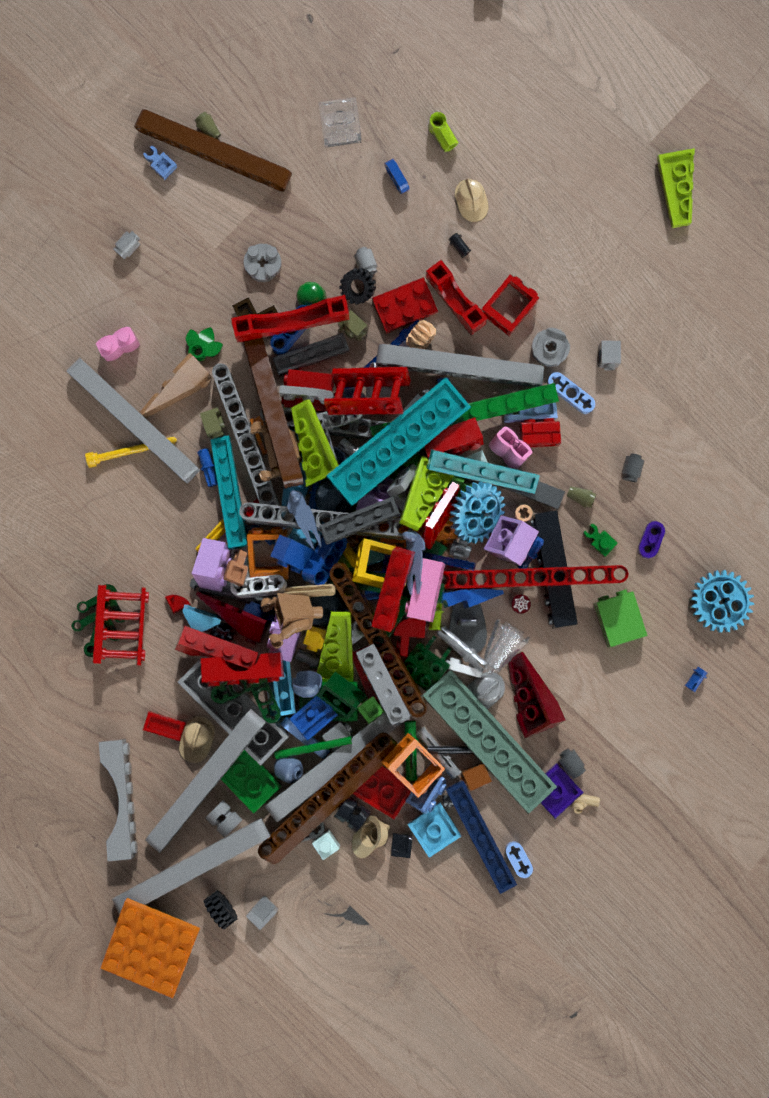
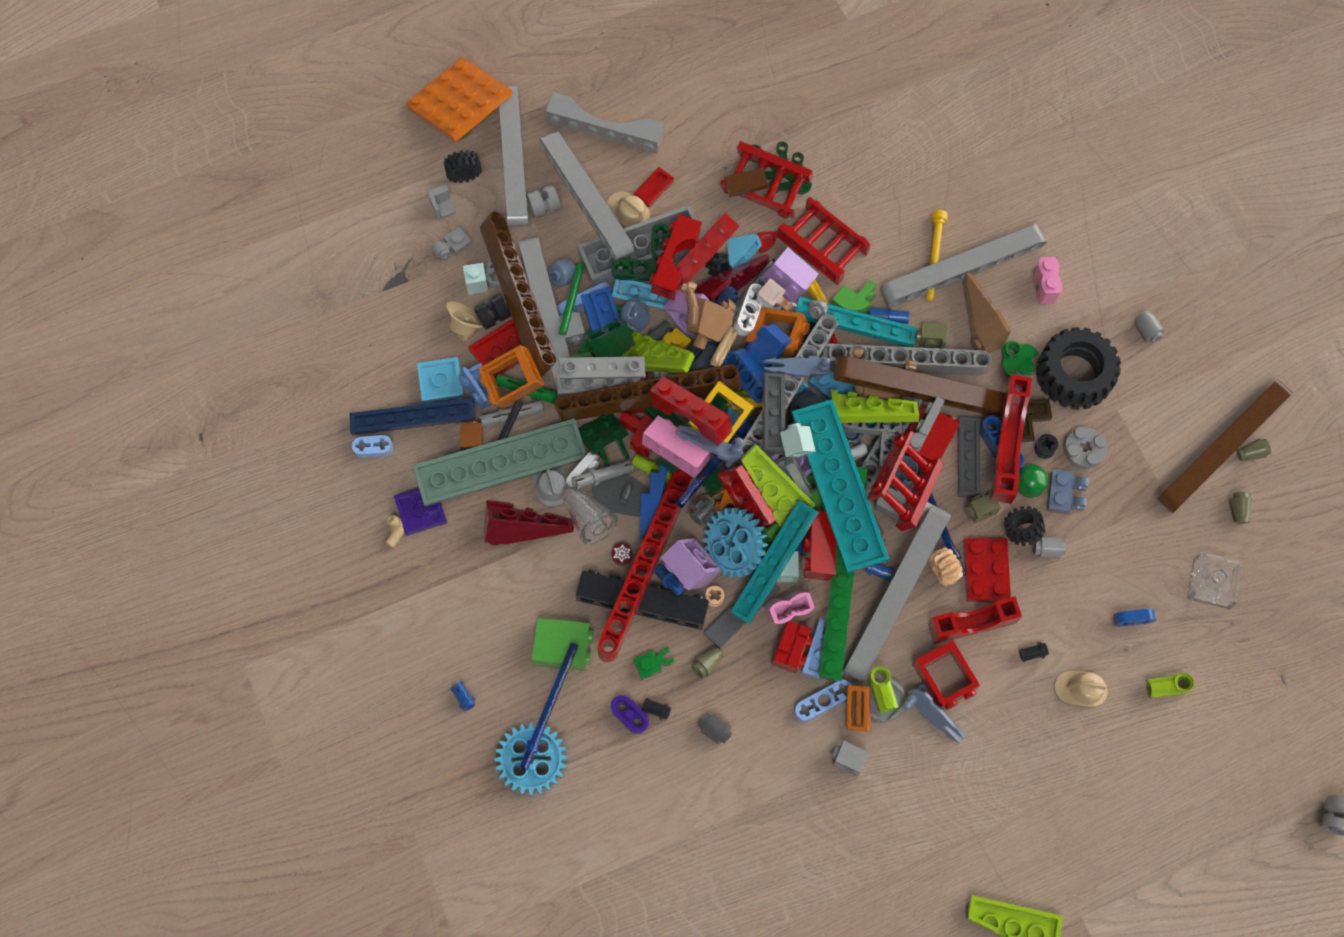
camera: 110 degrees right, 15 degrees down
(132, 641) = (746, 182): none -> reddish brown tile
(161, 164) = (1227, 391): medium blue plate -> none
(177, 548) = (816, 257): none -> red fence
(180, 270) = (1089, 347): none -> black tyre
(211, 502) = (857, 302): none -> bright green brick
(236, 525) = (817, 308): none -> light grey plate
(250, 782) = (562, 237): green plate -> none
(262, 122) = (1241, 506): none -> olive cone
(274, 297) = (1044, 451): none -> black wheel
(294, 880) = (455, 241): none -> light grey plate
(309, 269) = (1061, 492): none -> sand blue plate
(379, 488) = (797, 441): none -> light aqua brick
(401, 845) = (439, 344): black panel -> none
(539, 321) = (934, 714): none -> sand blue piece
(548, 347) = (882, 692): none -> lime piece
(555, 364) = (867, 707): none -> orange tile
(571, 763) = (439, 533): dark grey brick -> none
(637, 520) = (657, 709): none -> black pin
(716, 602) = (532, 745): none -> clear blue bar

